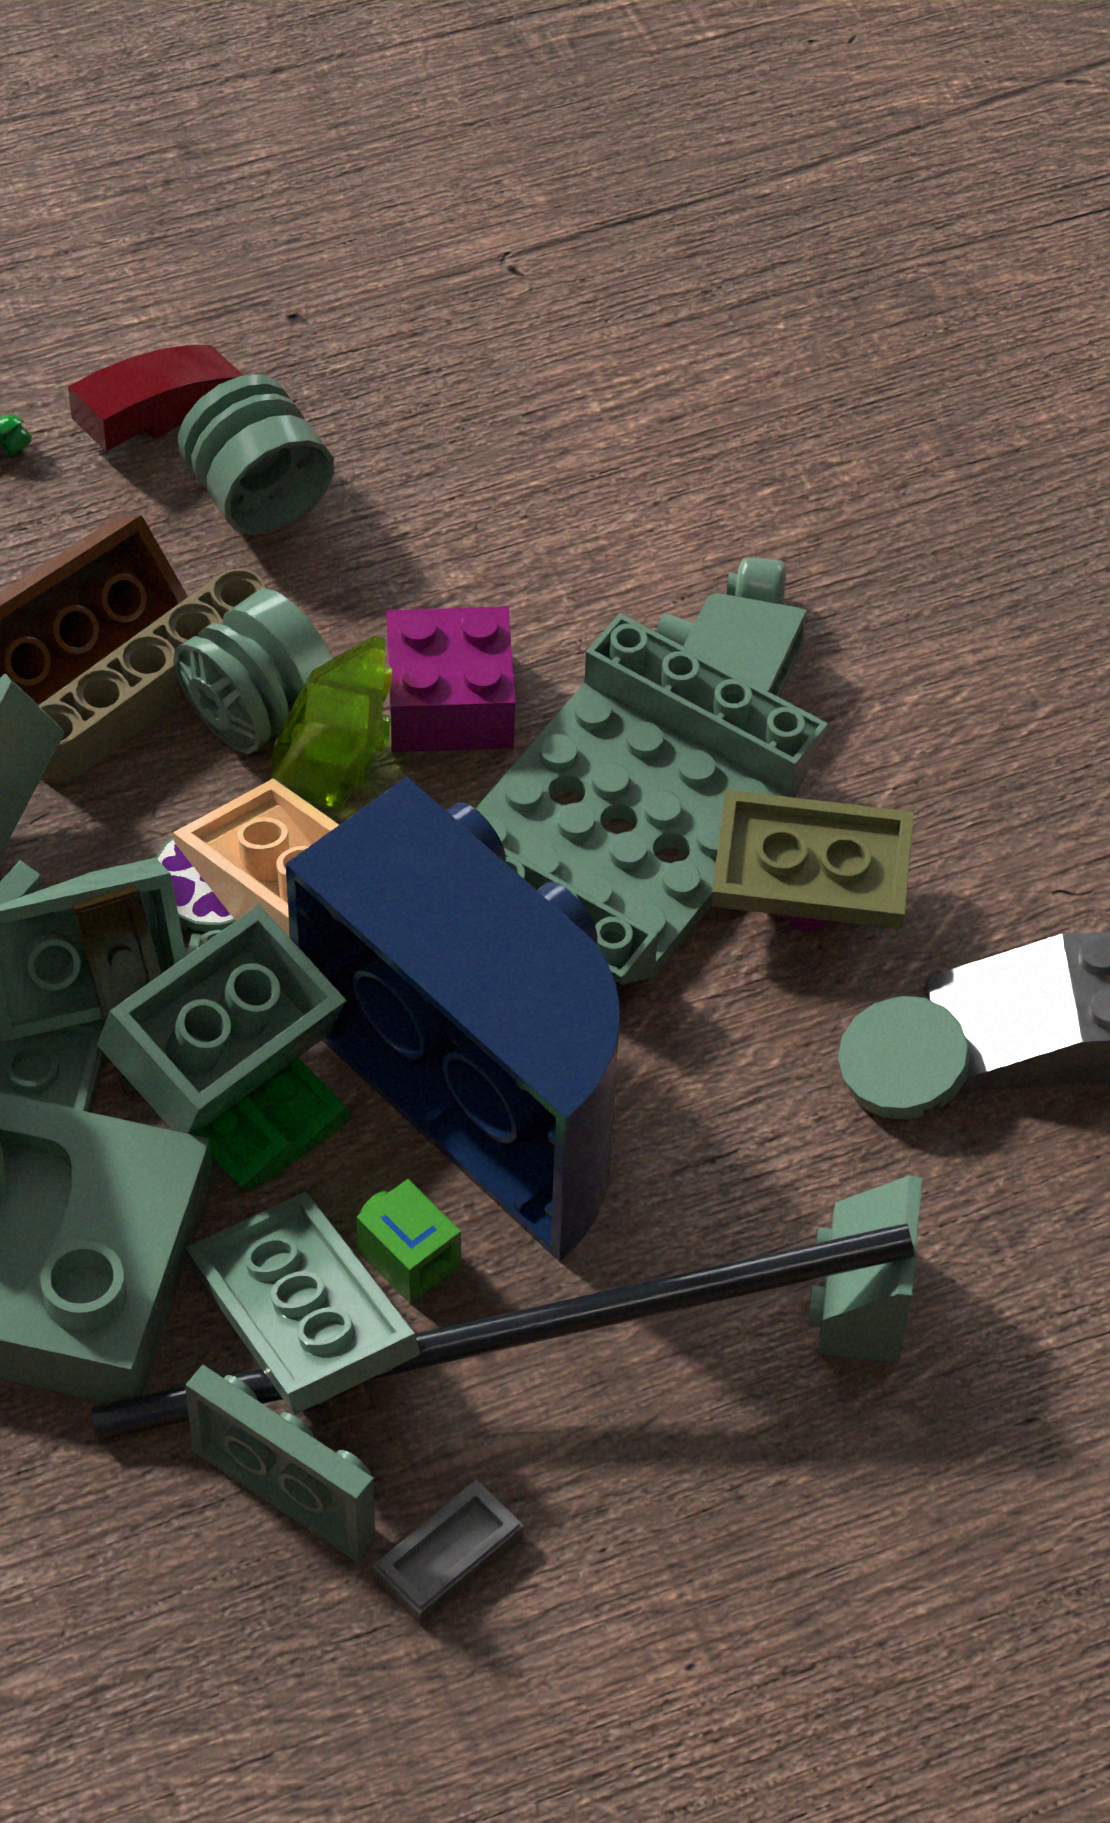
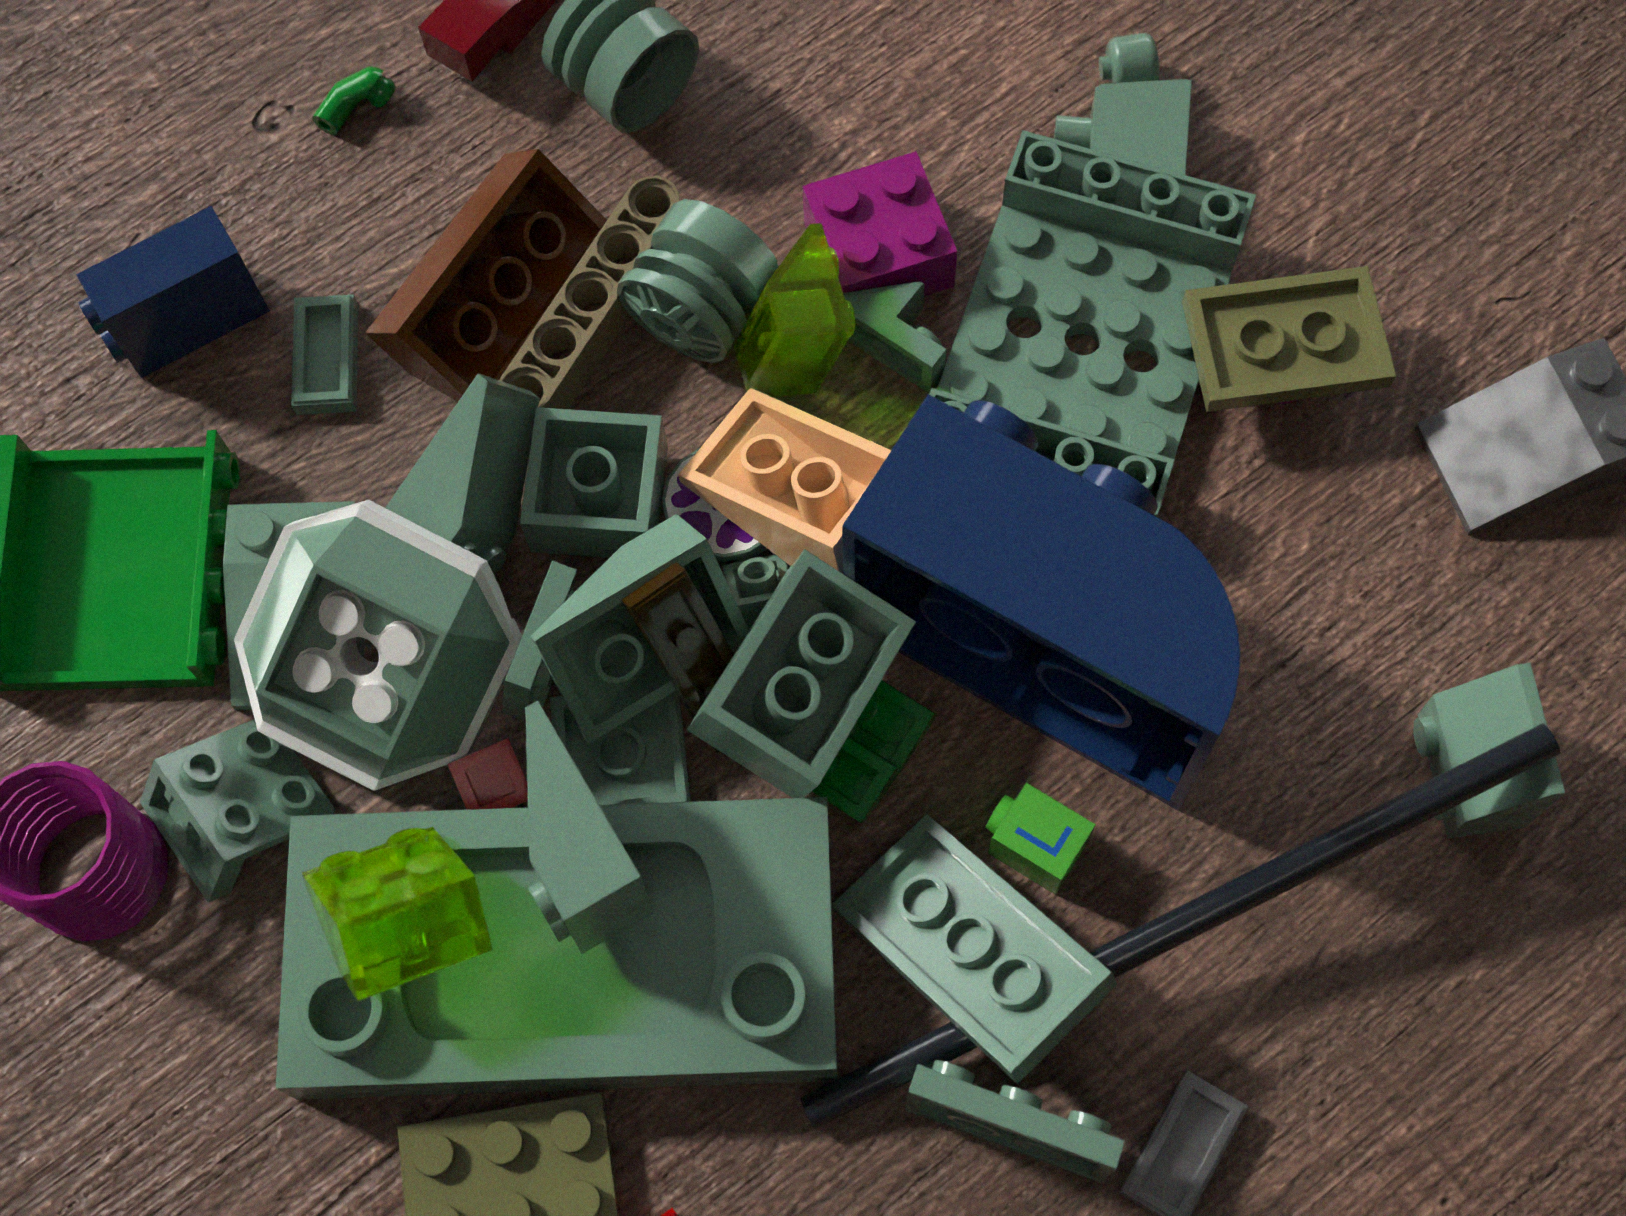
camera: 10 degrees left, 15 degrees up
(90, 813) = (592, 480): none -> sand green brick
(433, 756) = (886, 332): none -> sand green slope
(904, 1057) = (1430, 515): sand green tile -> none

